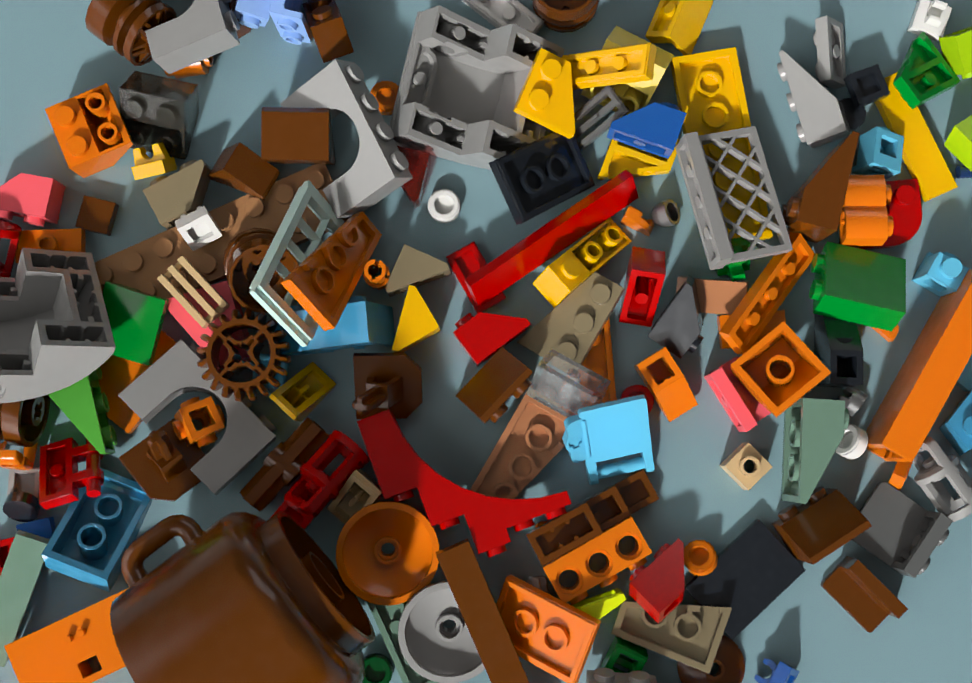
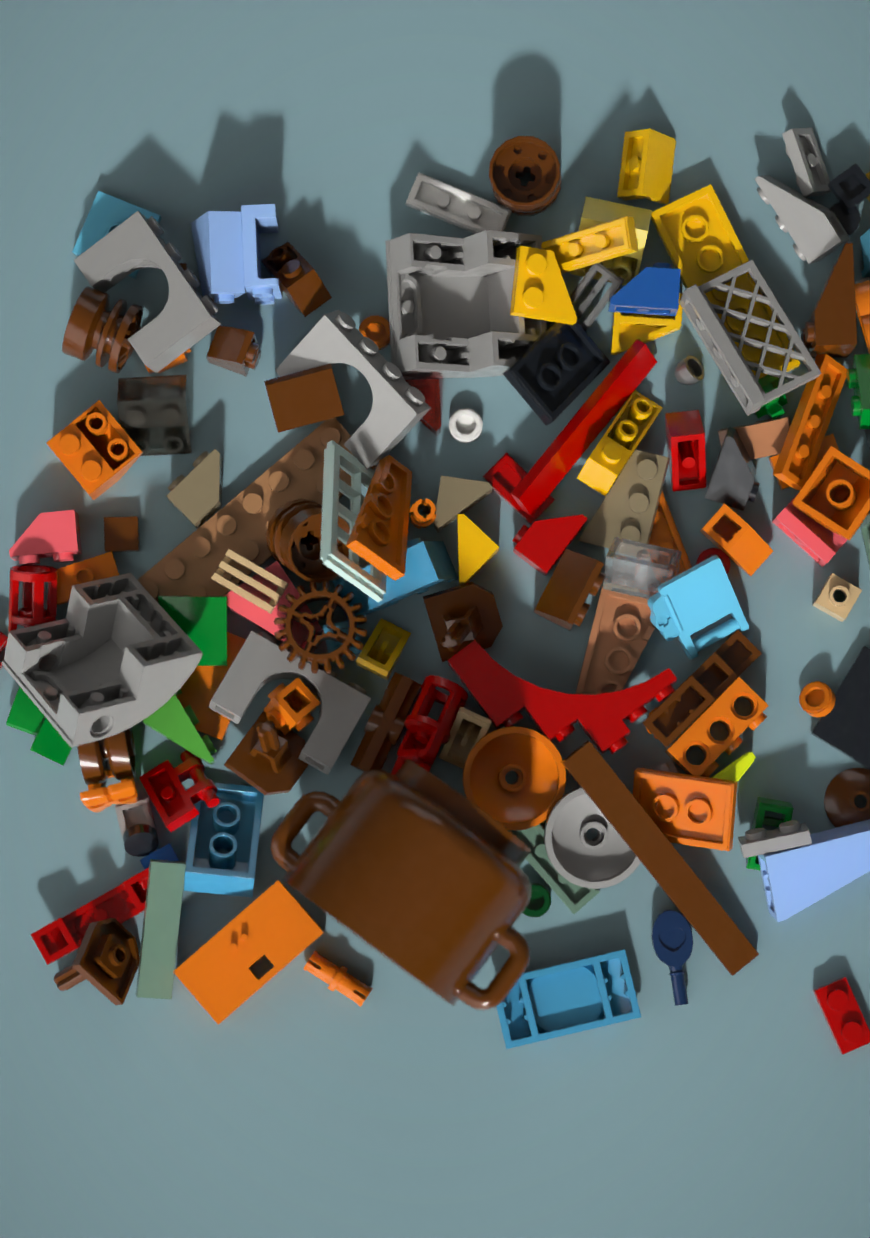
camera: 15 degrees left, 0 degrees up
(157, 165) = (165, 470): yellow tile -> none
(198, 228) = (234, 517): white tile -> none
(244, 171) = (257, 447): reddish brown slope -> none
(250, 74) = (234, 350): none -> reddish brown slope
(634, 220) = (658, 385): orange tile -> none
(661, 584) = (785, 733): red slope -> none
(686, 634) = (812, 776): dark tan wing -> none

